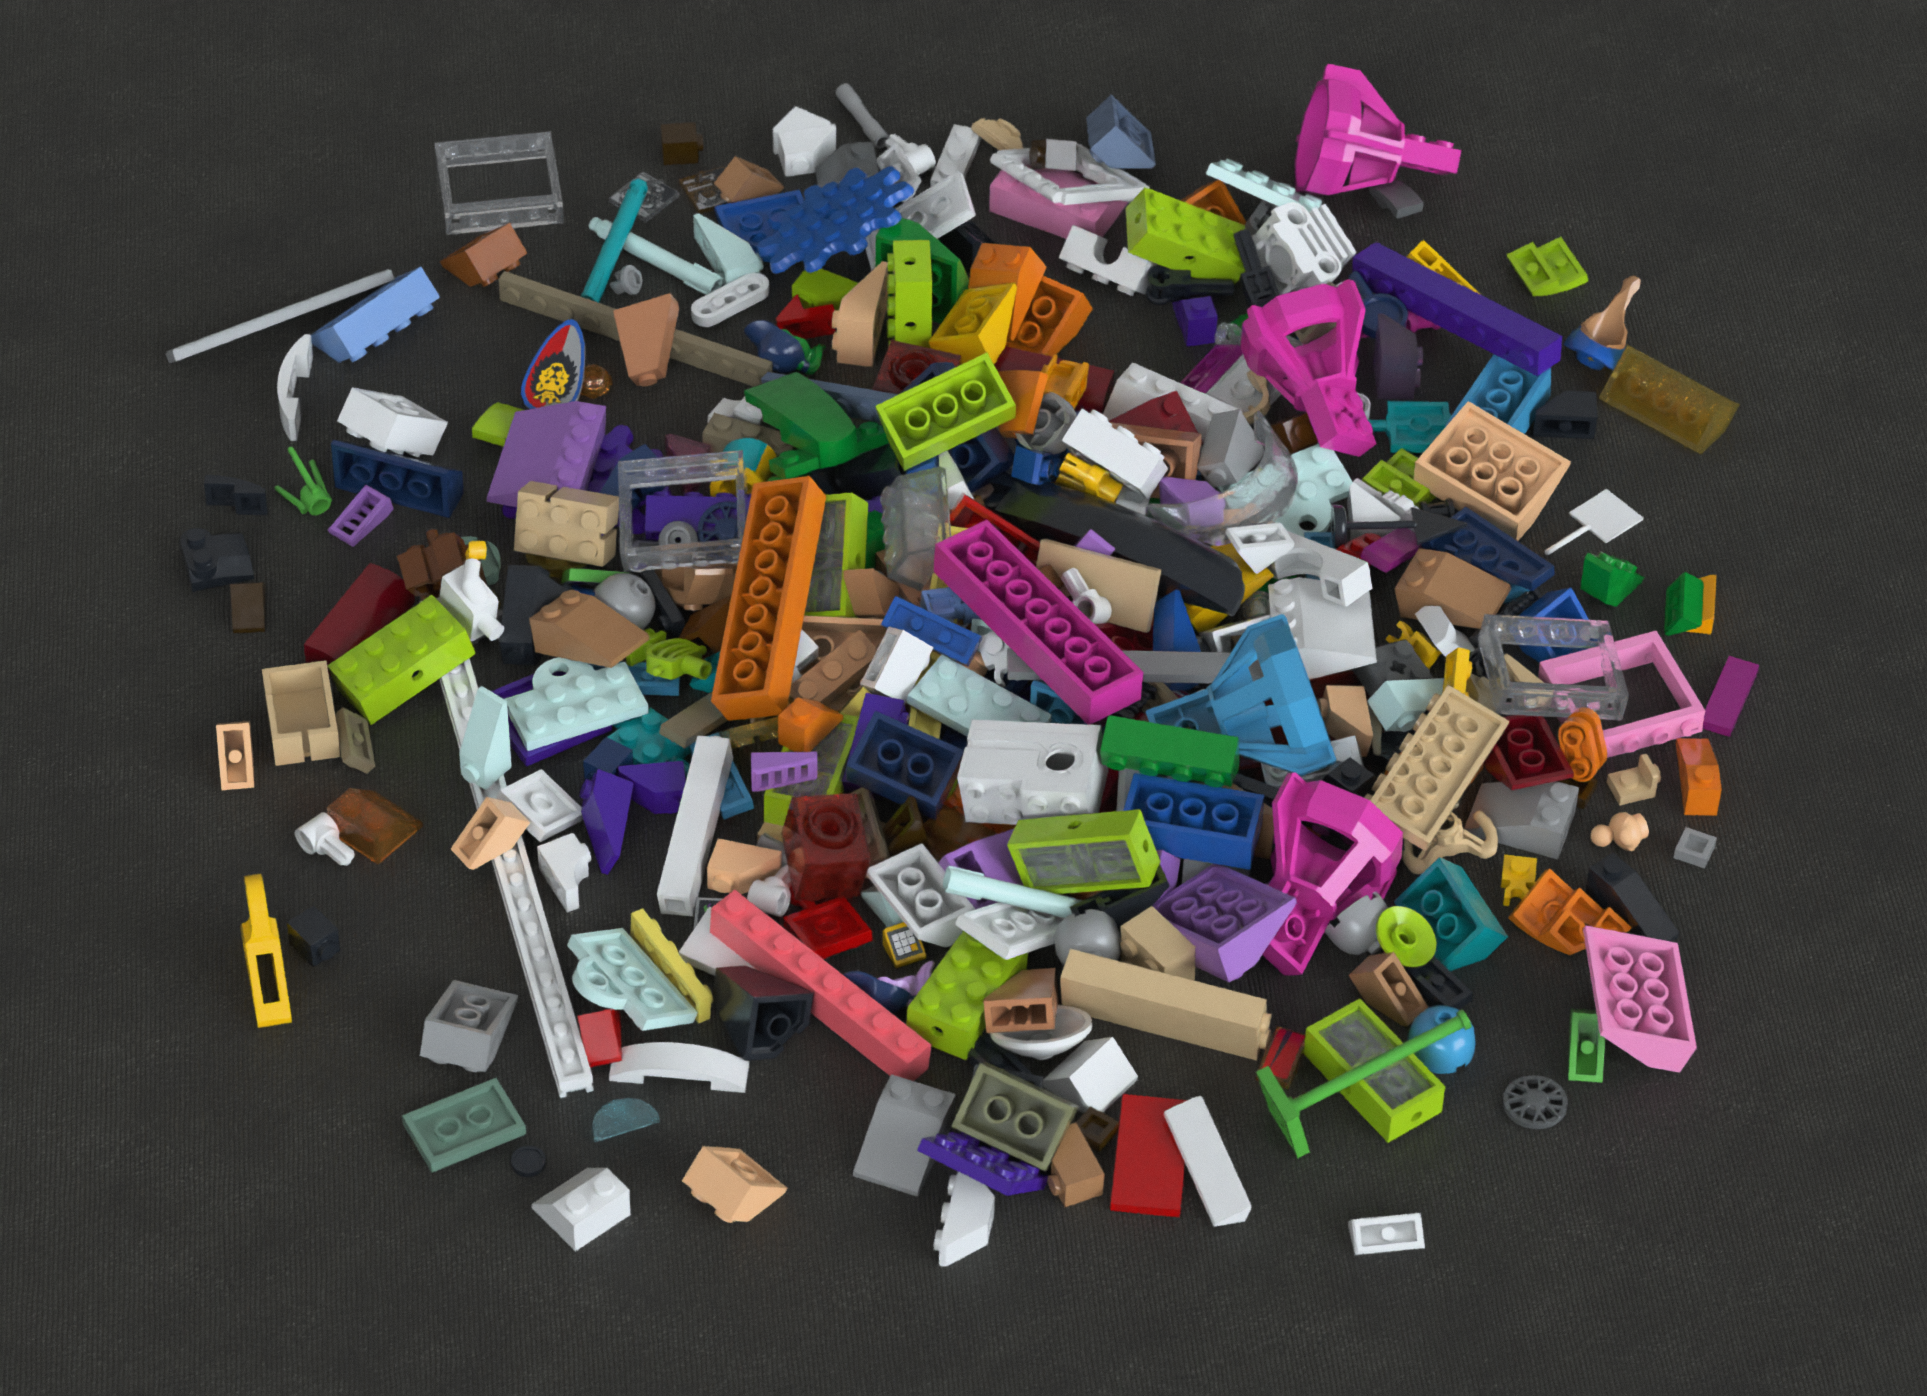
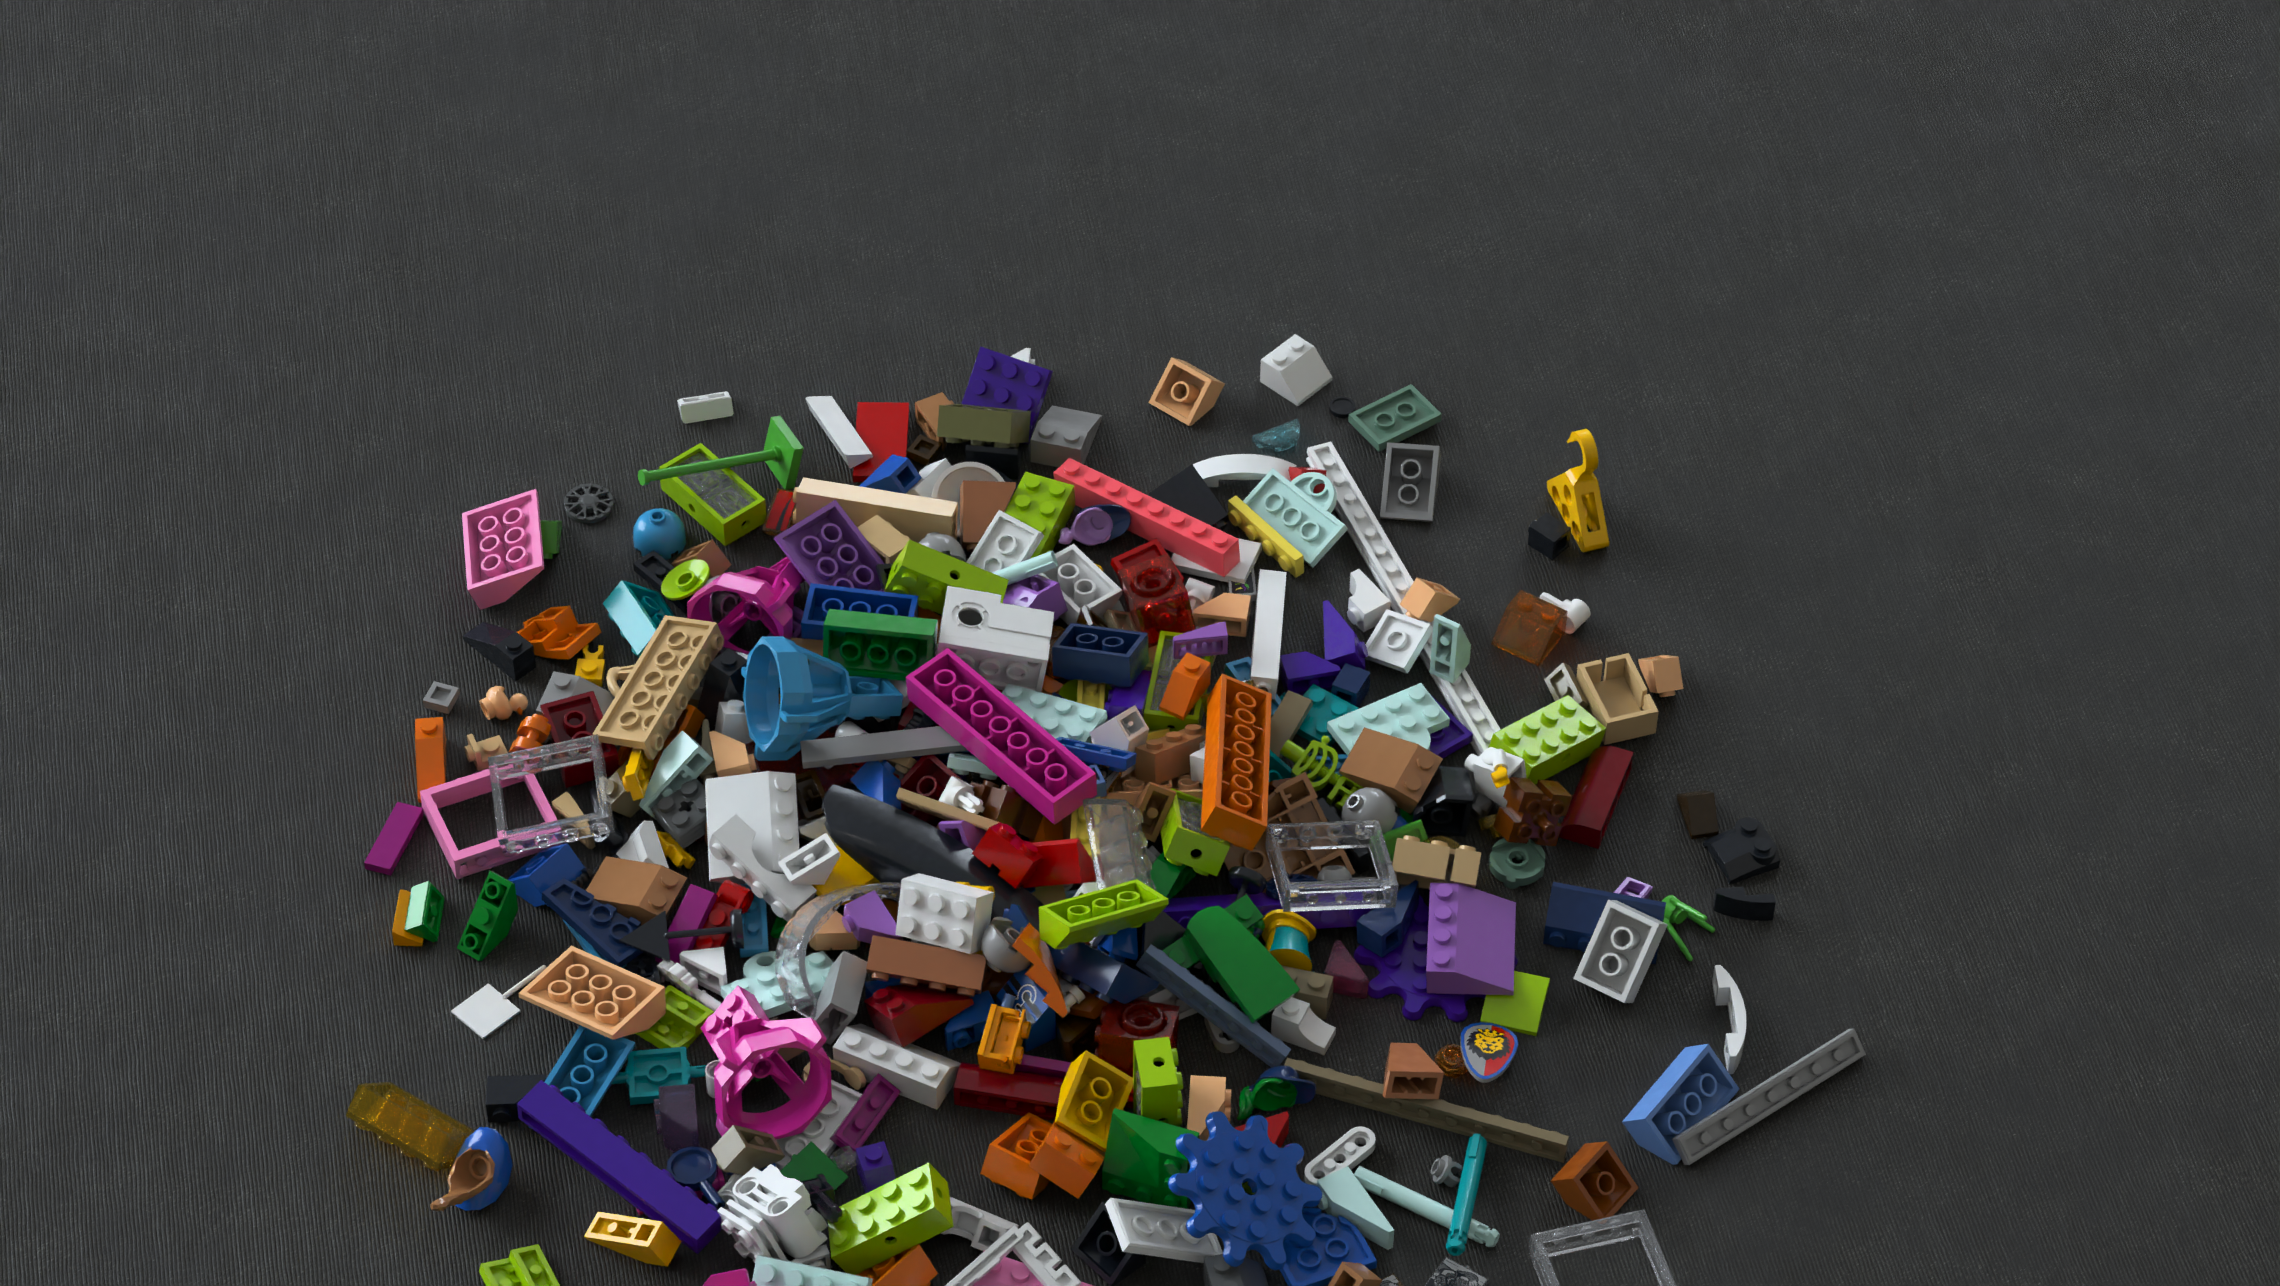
camera: 175 degrees right, 0 degrees up
(1039, 517) = (1009, 853): none -> red brick
(1141, 1062) = (894, 475): none -> blue slope

